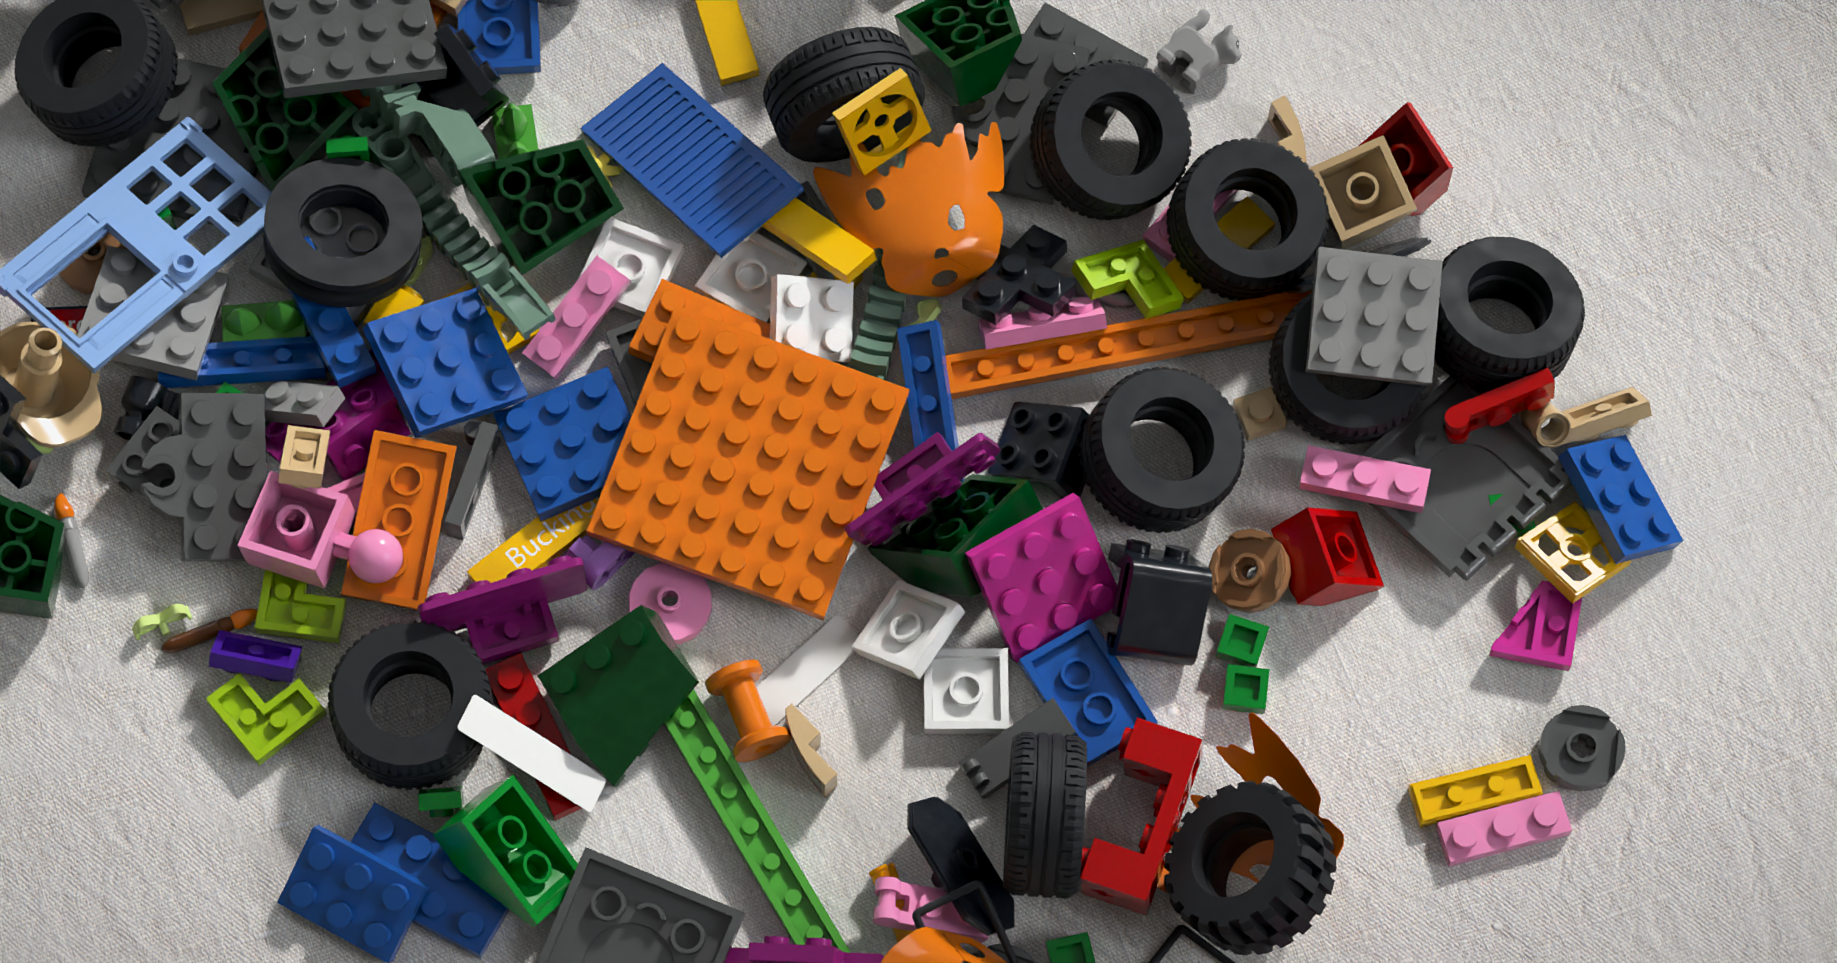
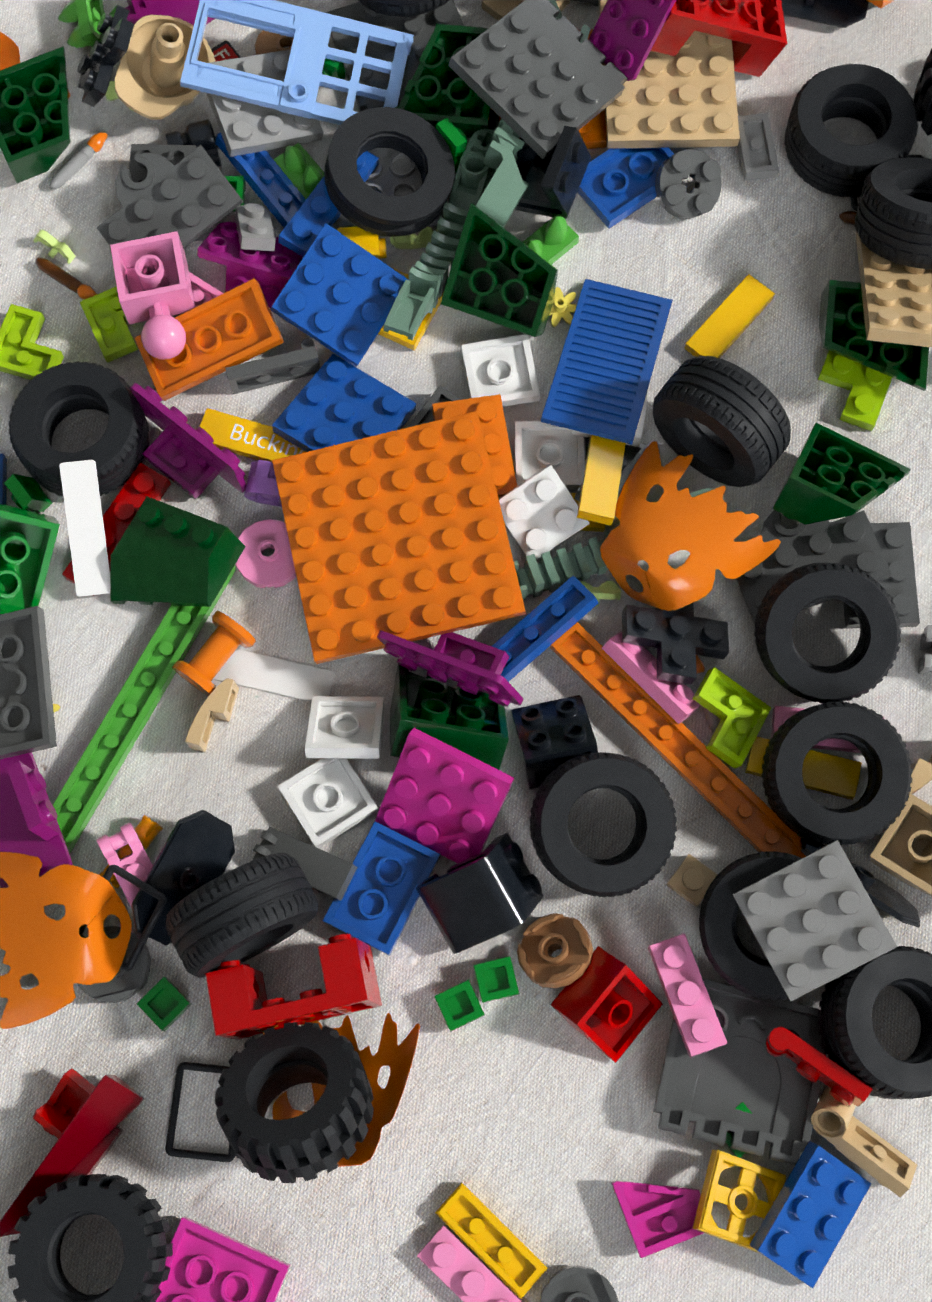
camera: 65 degrees right, 5 degrees up
(255, 656) = (60, 315): dark purple plate -> none
(304, 457) = (198, 244): tan plate -> none
(577, 317) = (438, 360): bright pink plate -> none
(891, 143) = (704, 477): yellow piece -> none

